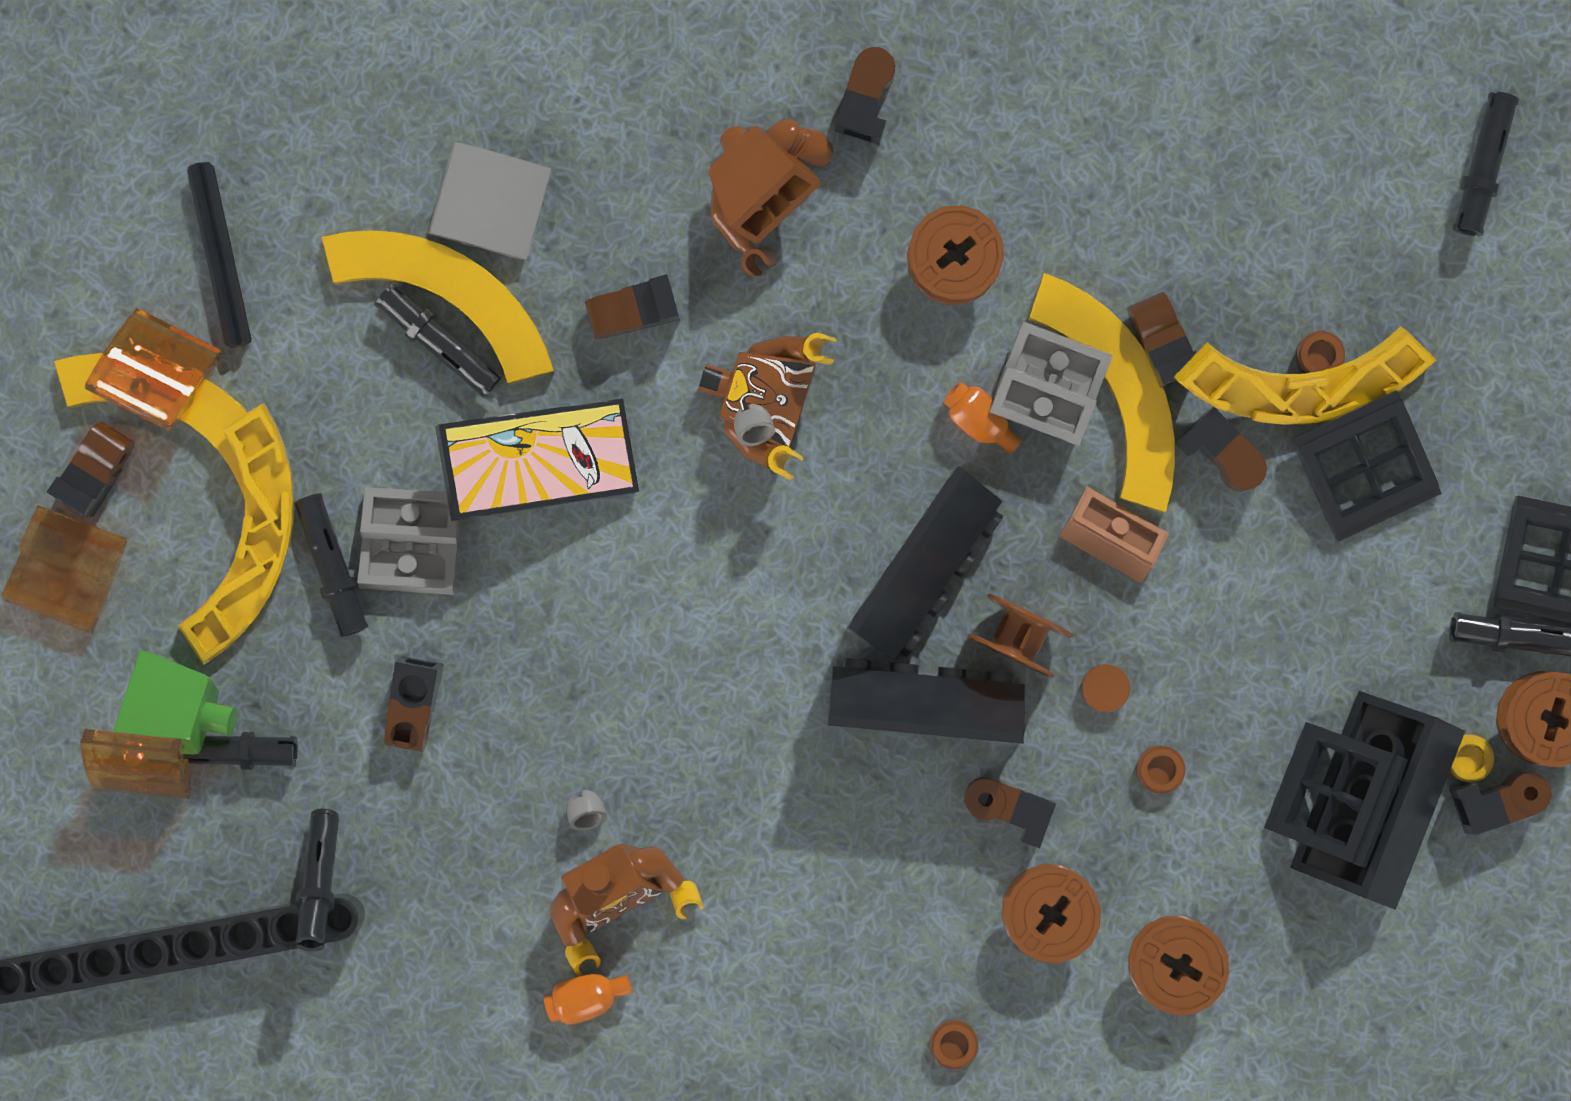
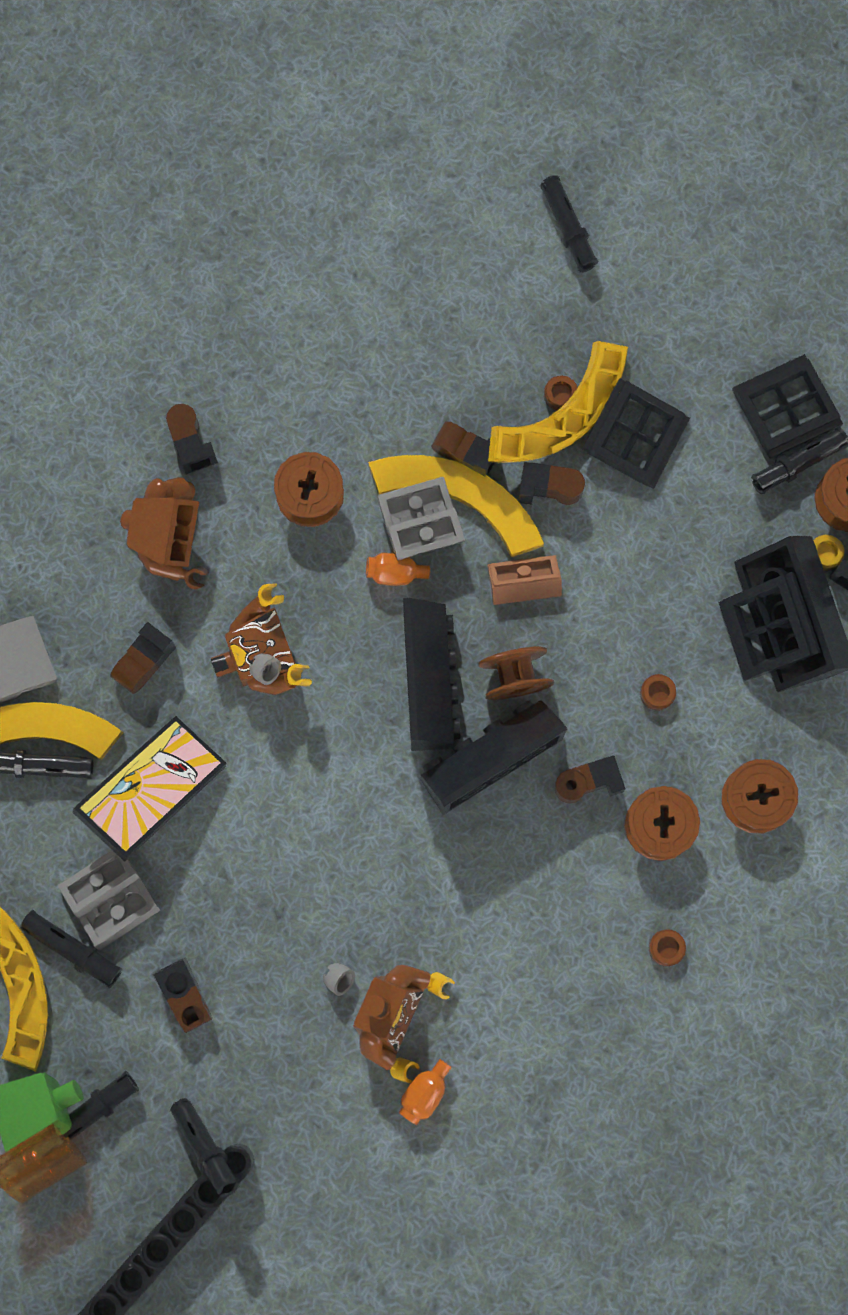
camera: 40 degrees left, 10 degrees down
(1105, 688) = (589, 669): dark orange tile -> none

